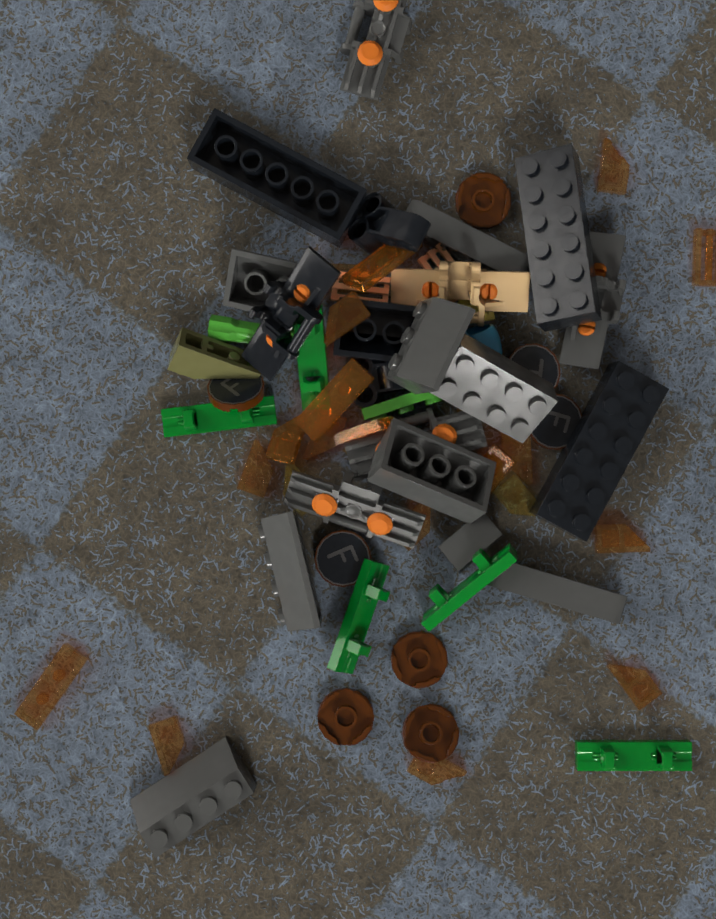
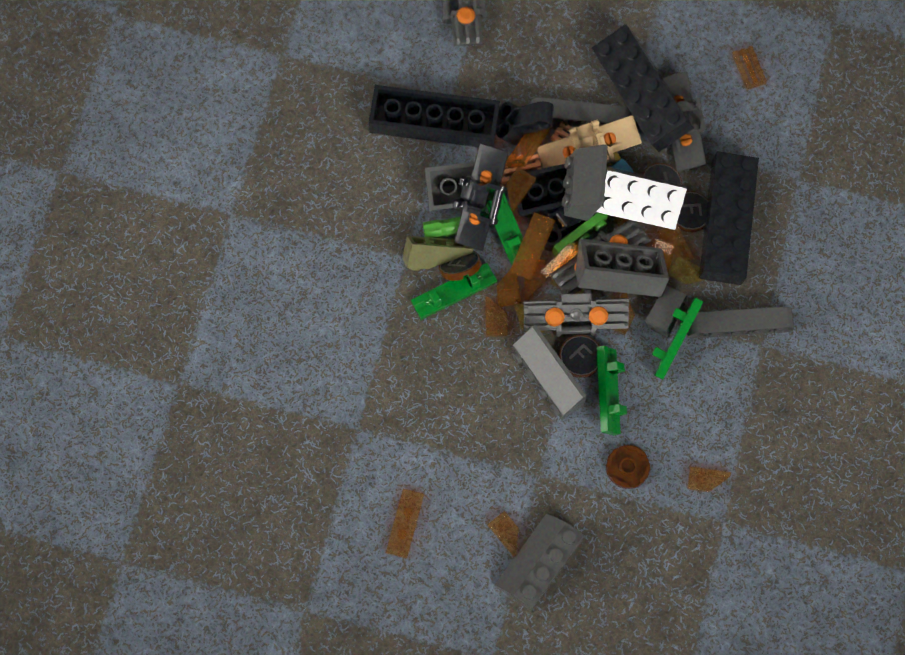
camera: 20 degrees left, 15 degrees down
(415, 649) = (663, 407): reddish brown tile -> none
(430, 733) = (693, 454): reddish brown tile -> none
(479, 209) = (586, 84): reddish brown tile -> none
(612, 171) = (660, 35): clear orange tile -> none
(617, 539) = (768, 274): clear orange tile -> none
(633, 755) = (843, 418): green hinge -> none
(636, 684) = (824, 368): clear orange tile -> none

